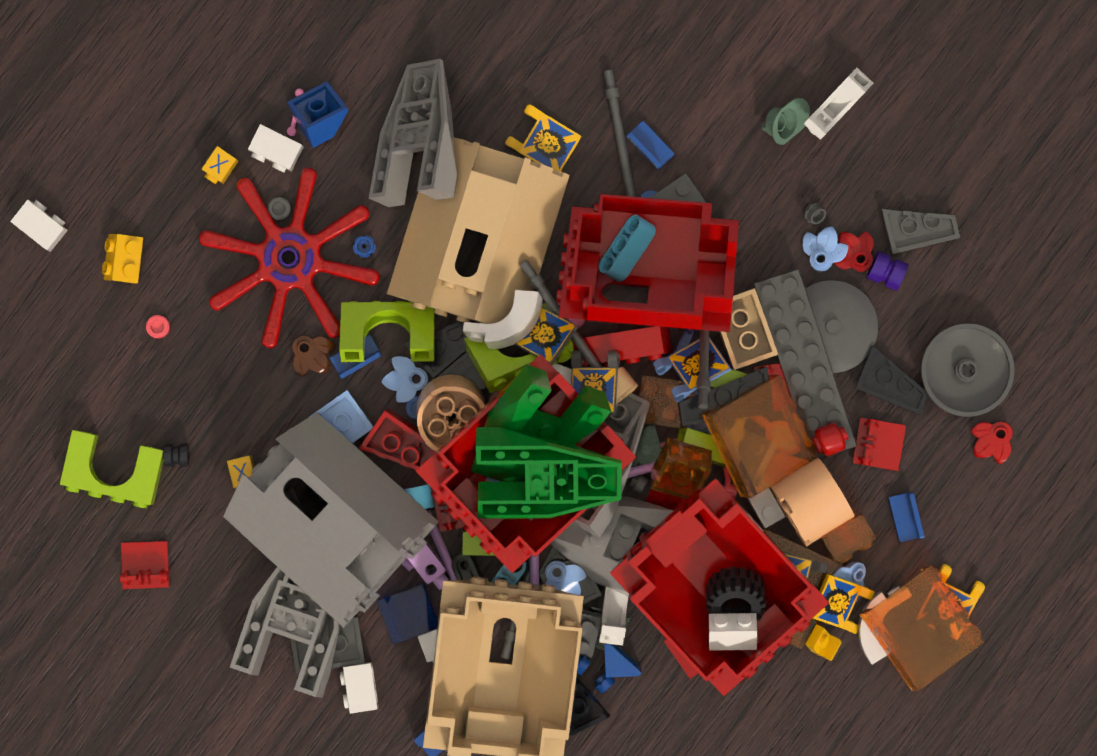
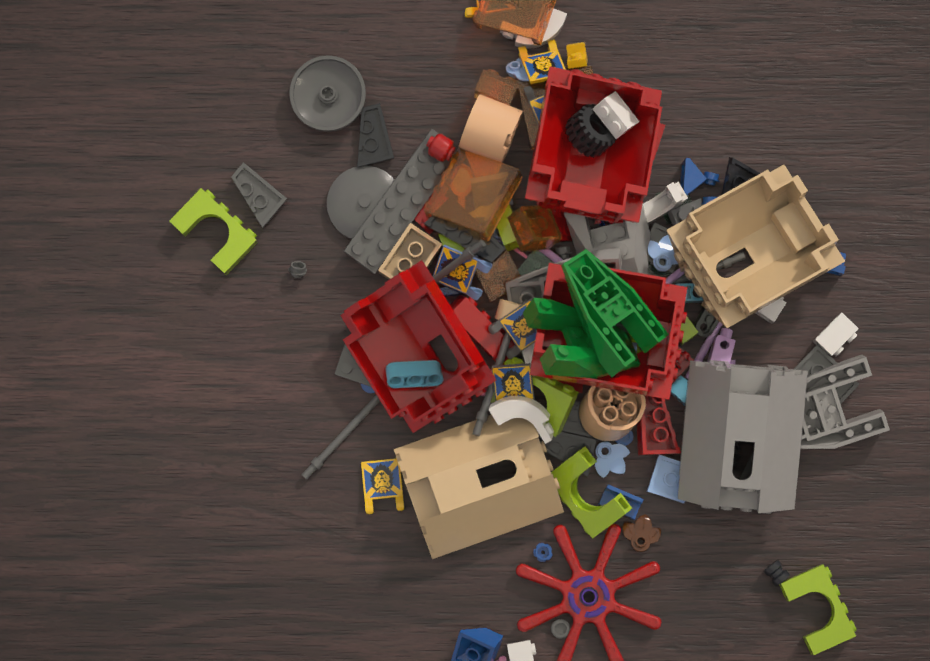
camera: 130 degrees left, 5 degrees down
(144, 565) = (865, 539): red hinge -> none
(158, 326) = (700, 651): coral tile -> none
(240, 467) = (753, 521): yellow brick -> none
(408, 614) = (763, 340): clear blue slope -> none
(415, 123) = (434, 576): light grey wedge -> none
(650, 145) = (333, 411): blue panel -> none
(731, 488) = (521, 191): coral hand -> none
(766, 508) = (517, 155): white brick -> none
(786, 121) = (250, 332): sand green piece -> none
(824, 245) = (314, 248): light blue plate -> none
(838, 103) = (213, 307): white arch -> none
(856, 247) = (304, 228): red plate -> none
(879, 444) = (419, 115): red hinge -> none
(888, 271) = (300, 193): dark purple wheel -> none
(906, 517) = (453, 63): blue panel -> none
(946, 165) = (203, 206): none -> lime arch
(990, 443) = (364, 44): red plate -> none

